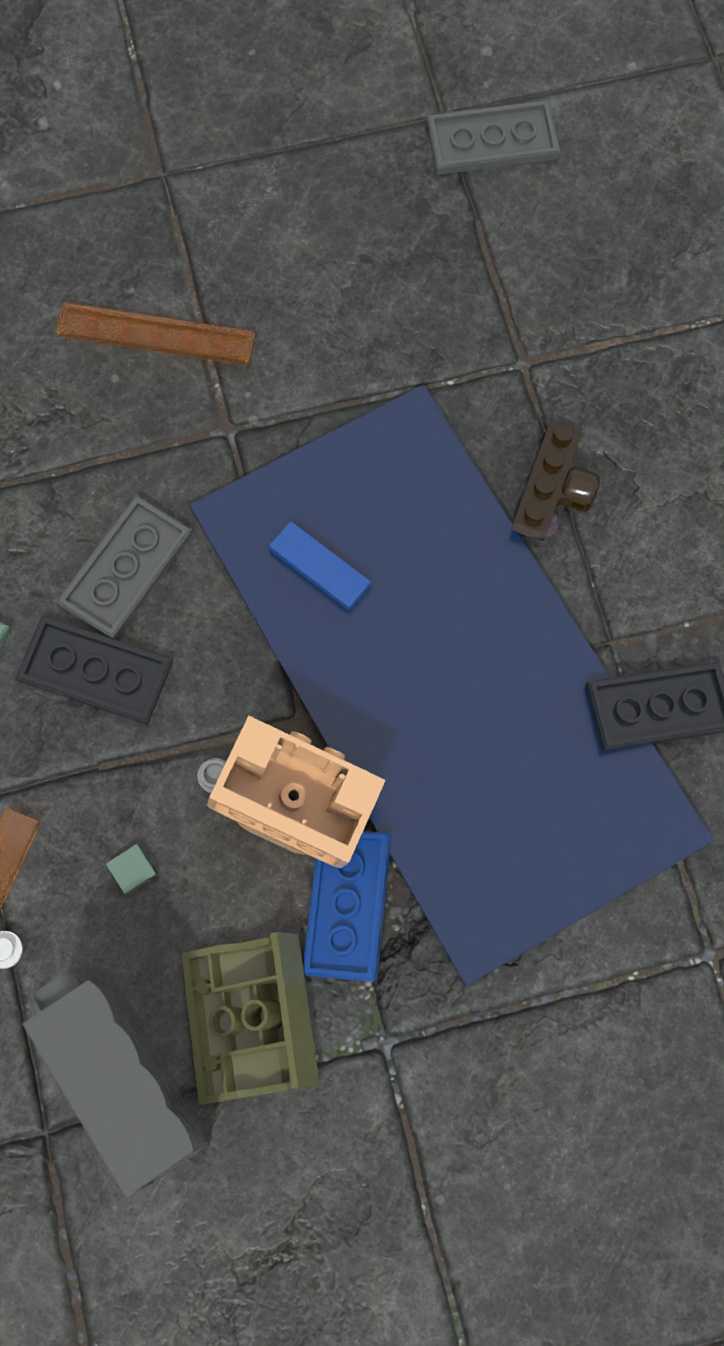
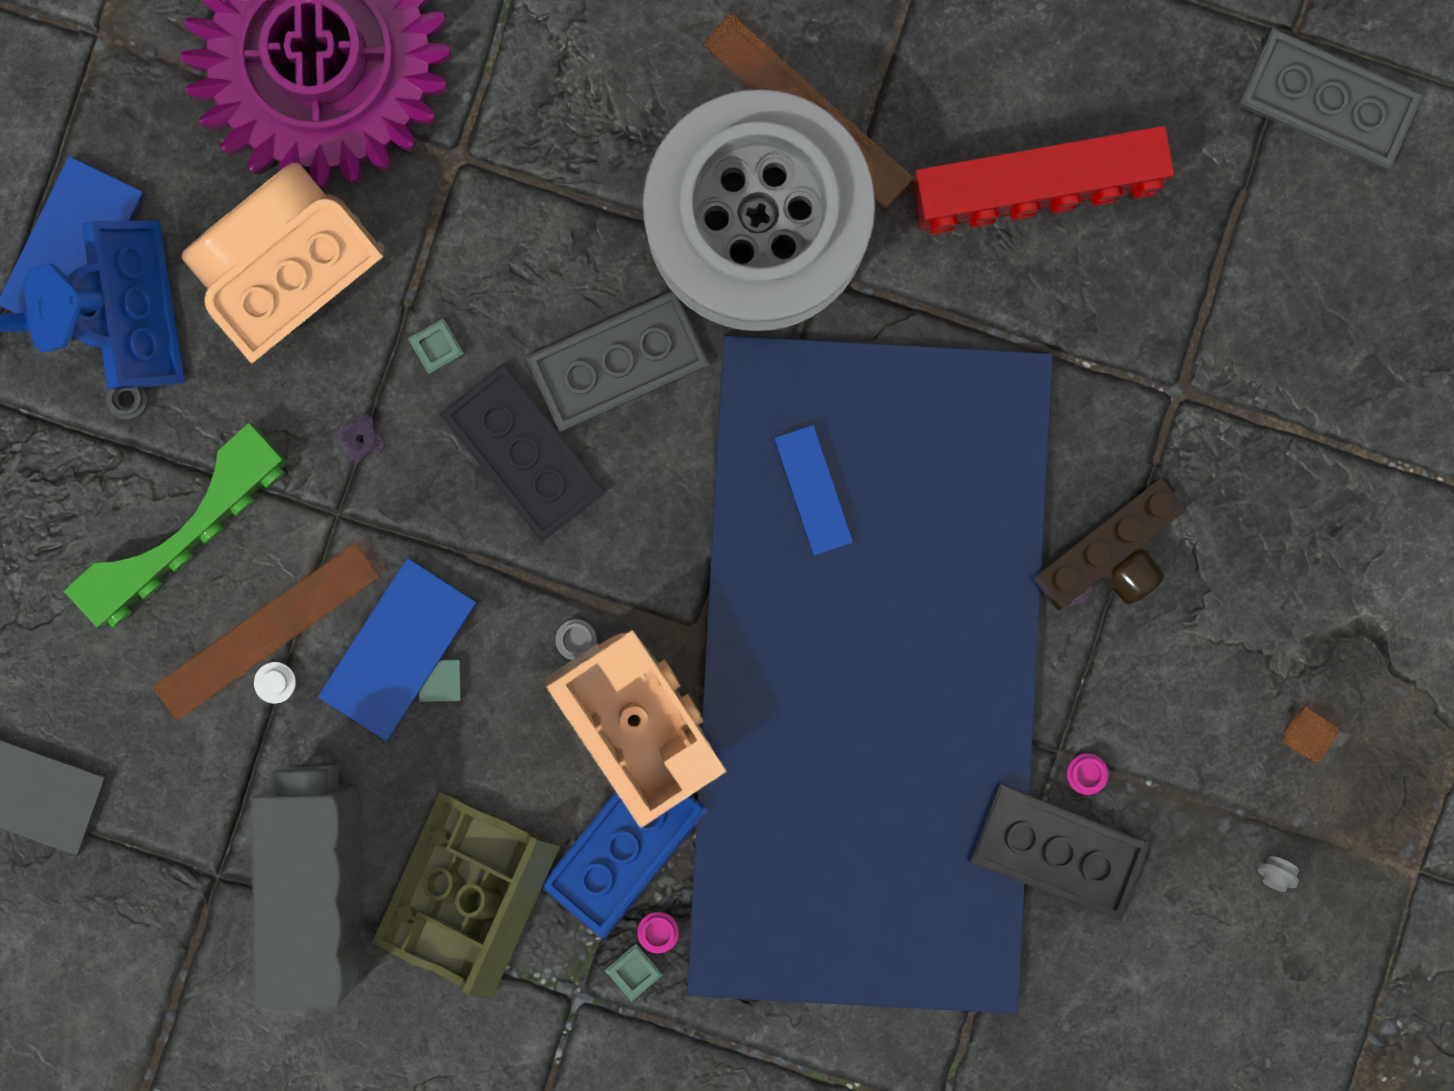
camera: 30 degrees right, 15 degrees up
(85, 867) = (397, 649): none -> blue tile
(130, 436) = (747, 136): none -> light grey wheel
(339, 276) = (1042, 179): none -> red brick
(413, 952) = (658, 932): none -> dark pink plate
(414, 995) = (633, 971): none -> sand green tile
(641, 642) = (1087, 774): none -> dark pink plate

